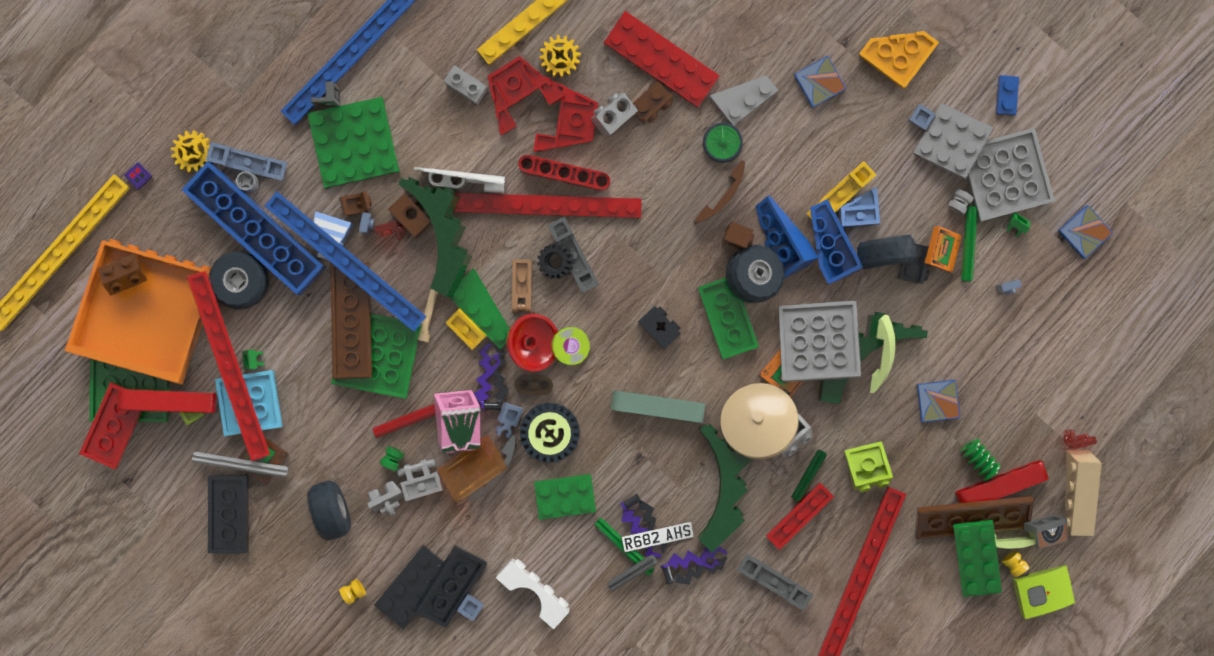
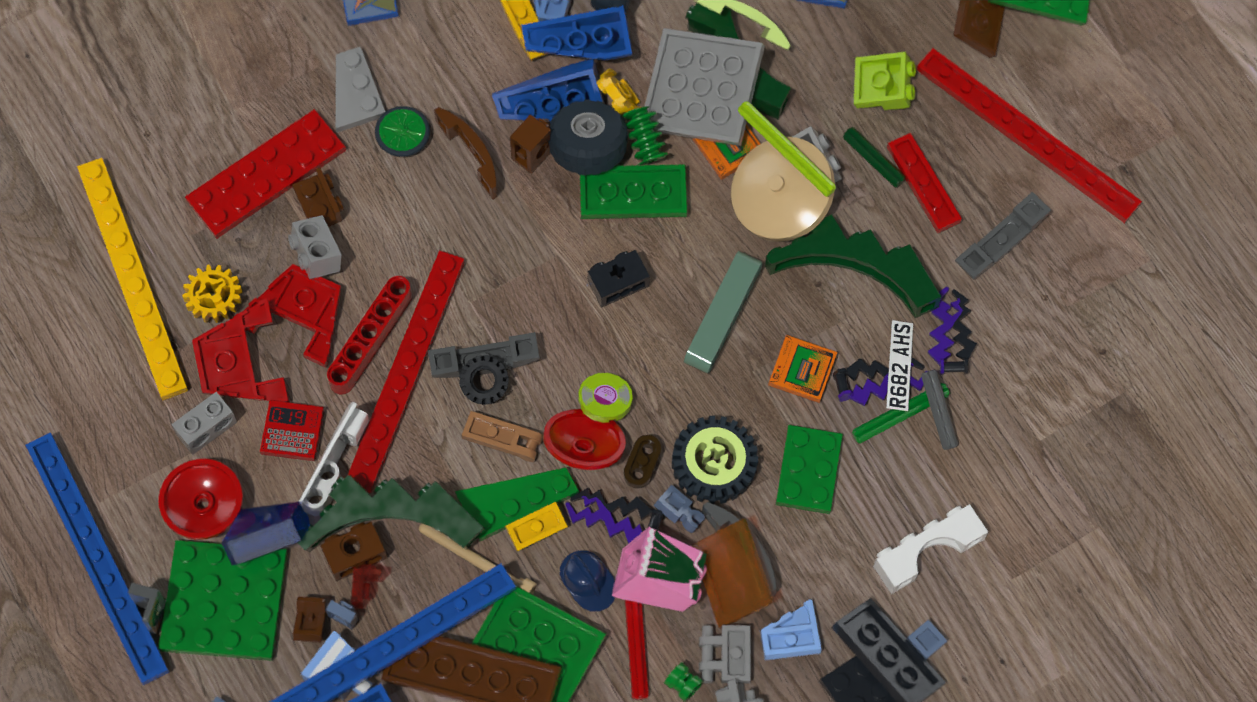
camera: 75 degrees left, 20 degrees down
(400, 153) = (264, 531): none -> clear blue slope
(409, 90) = (197, 483): none -> red dish
(443, 373) = (587, 580): none -> dark blue piece
(447, 519) = (792, 635): none -> light blue wing
(482, 145) = (292, 430): none -> red tile
(635, 471) = (802, 368): none -> orange tile
(769, 314) = (645, 135): none -> green piece
(783, 417) = (787, 149): none -> lime axle
(797, 284) = (620, 92): none -> yellow plate

